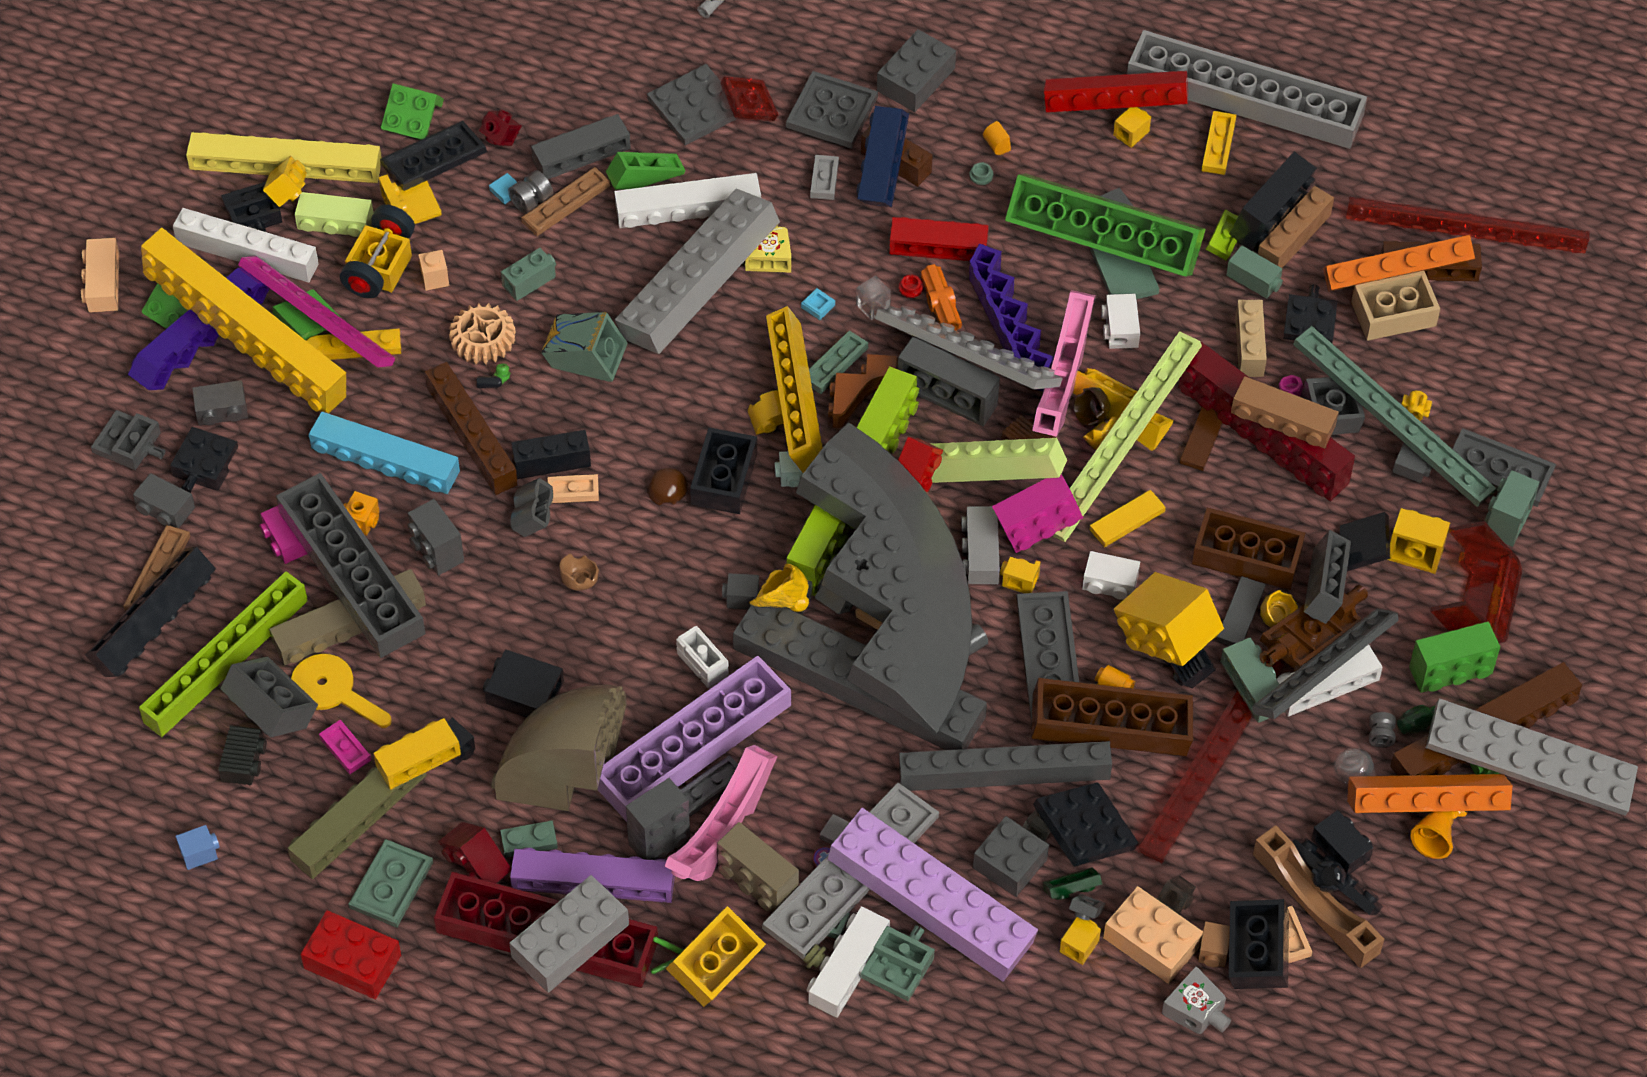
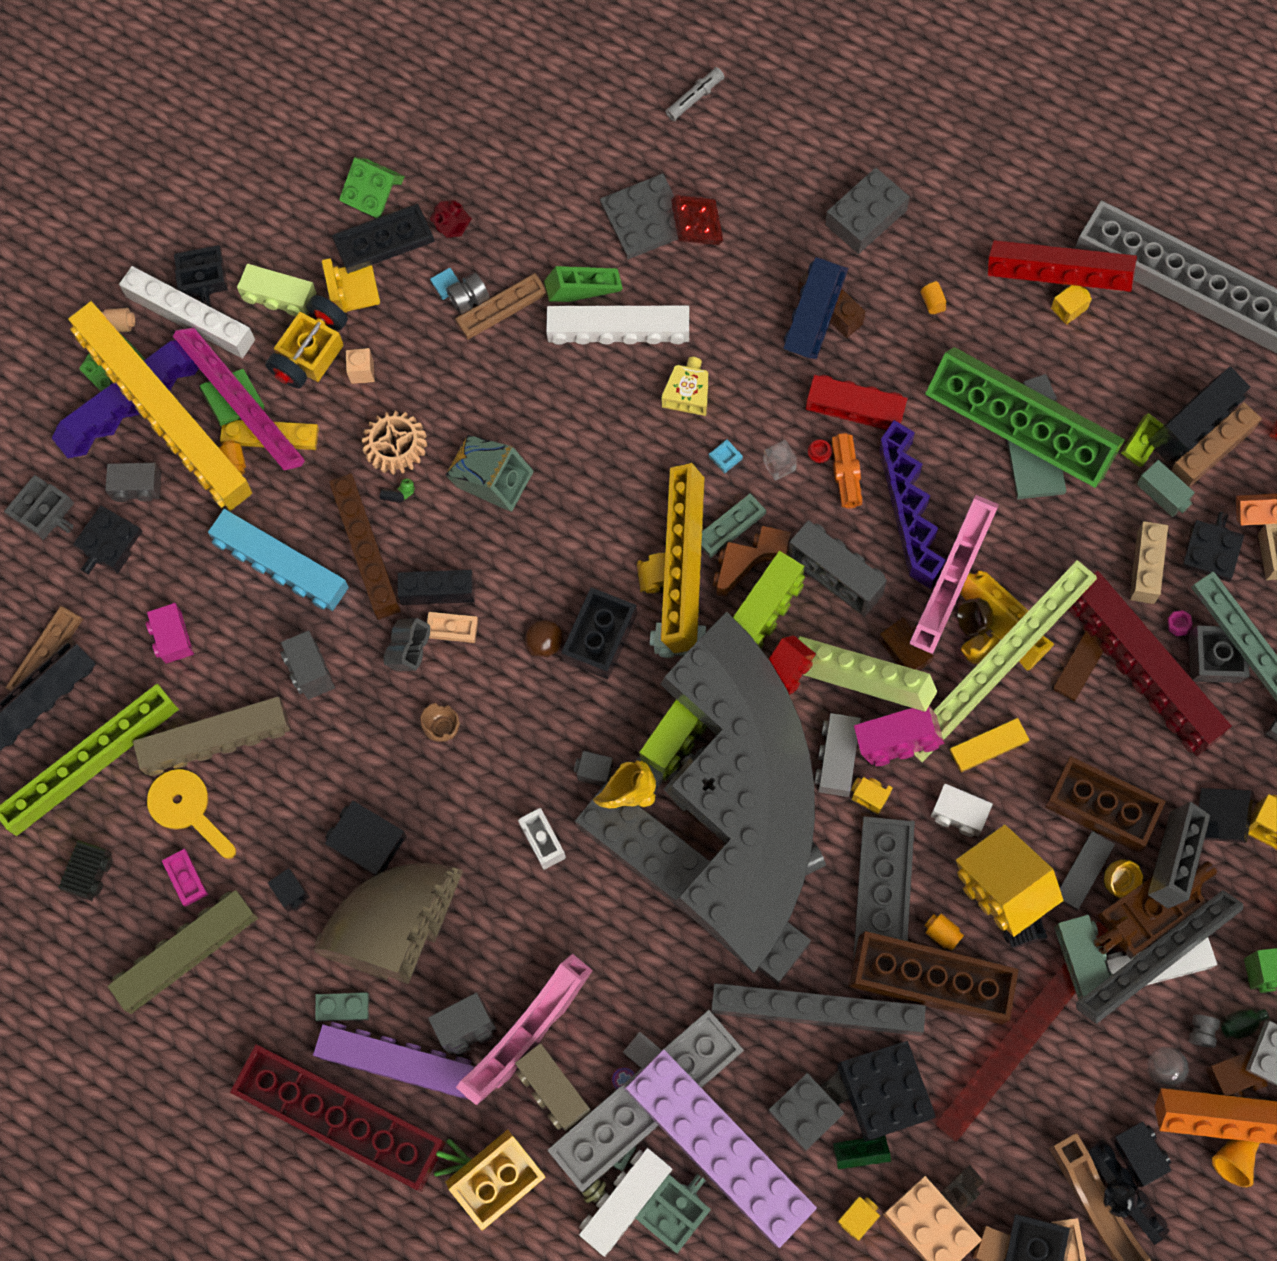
camera: 15 degrees right, 15 degrees up
(101, 275) = (47, 324): light nougat brick -> none
(163, 501) = (61, 580): dark grey brick -> none
(197, 847) = (26, 965): medium blue brick -> none
(263, 155) = (241, 220): light yellow brick -> none
(269, 696) = (118, 817): dark grey brick -> none
(285, 181) = (233, 251): yellow brick -> none
(350, 565) = (217, 690): dark grey brick -> none
(351, 954) = (148, 1110): red brick -> none
(364, 511) = (242, 626): light orange brick -> none
(391, 883) = (203, 1033): sand green tile -> none
(417, 753) = (244, 907): yellow brick -> none
(476, 851) = (283, 1022): dark red brick -> none
(528, 274) = (450, 382): sand green brick -> none
(569, 933) = (352, 1141): light grey brick -> none
(581, 146) = (525, 249): dark grey brick -> none
(696, 734) = (517, 928): lavender brick -> none
(697, 271) = (612, 408): light grey brick -> none
(709, 785) = (521, 979): dark grey tile -> none
(824, 177) = (756, 316): light grey plate -> none
(832, 109) = (776, 241): dark grey plate -> none
(967, 347) = (863, 540): light grey plate -> none
(981, 173) = (911, 335): sand green plate -> none
(1087, 907) = (871, 1187): dark grey plate -> none
(1121, 321) = (1022, 523): white brick -> none
(1219, 142) = (1155, 334): yellow plate -> none
(1284, 412) = (1168, 669): medium nougat brick -> none

